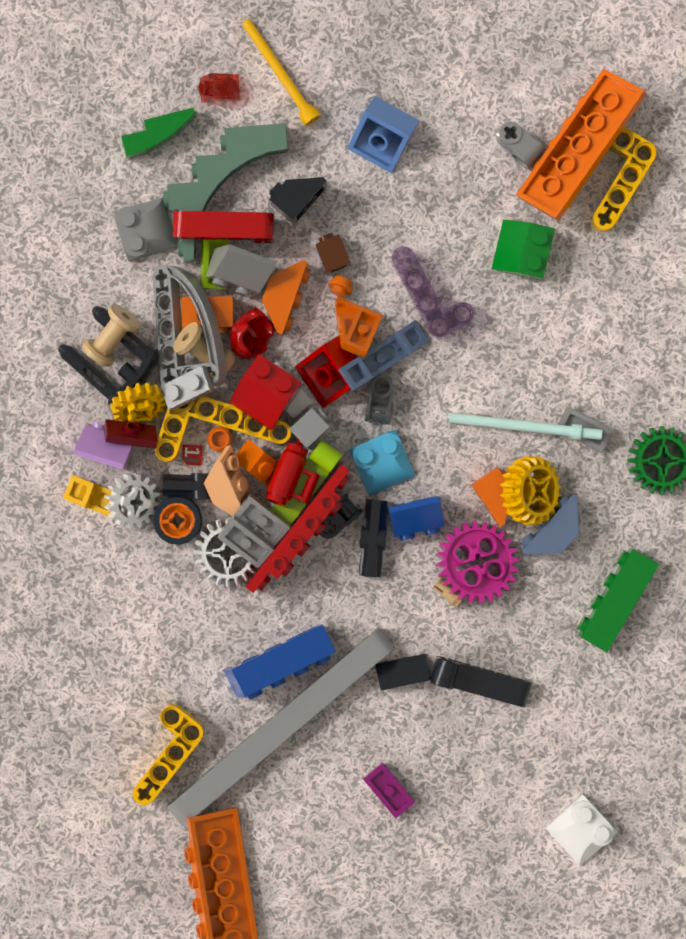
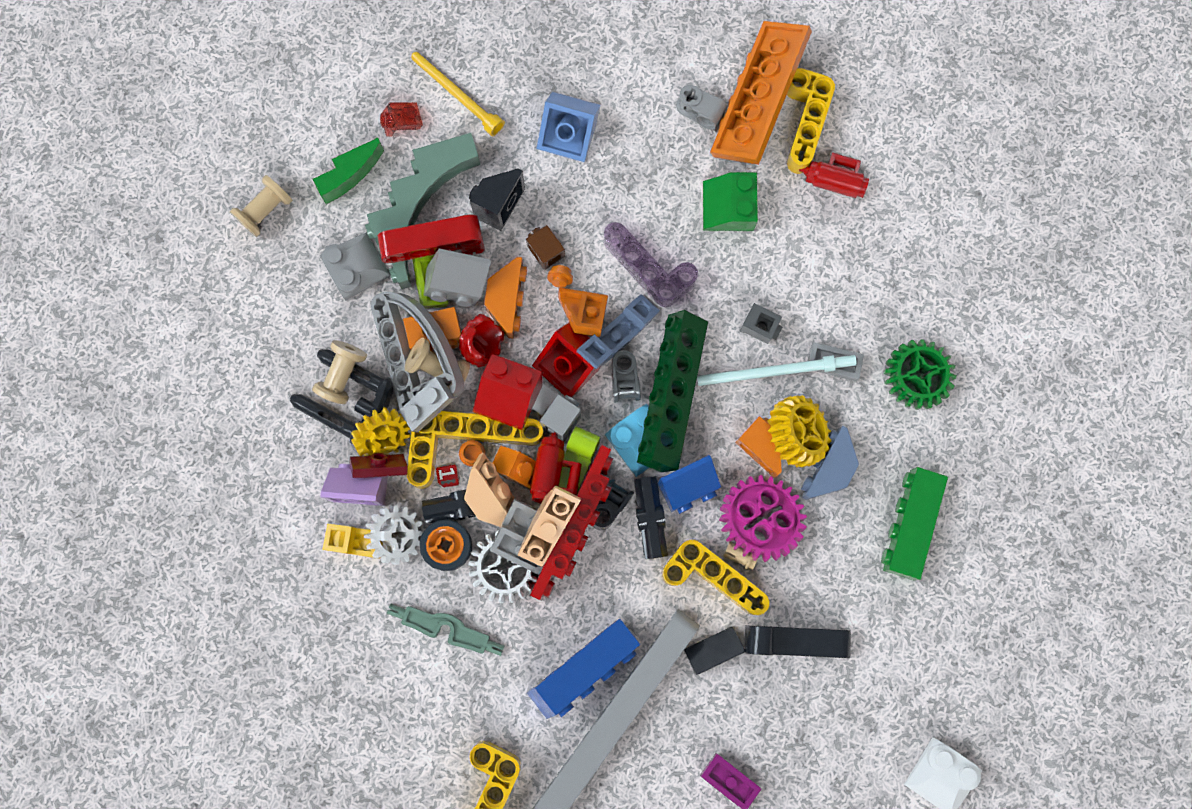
camera: 15 degrees left, 10 degrees down
(65, 151) = (261, 205): none -> tan piece
(150, 588) = (459, 634): none -> sand green piece
(275, 528) = (548, 525): none -> light nougat slope
(423, 610) = (719, 581): none -> yellow beam
(432, 416) = (672, 392): none -> dark green brick
(519, 368) = (762, 315): none -> dark grey brick
(635, 248) = (836, 178): none -> red piece

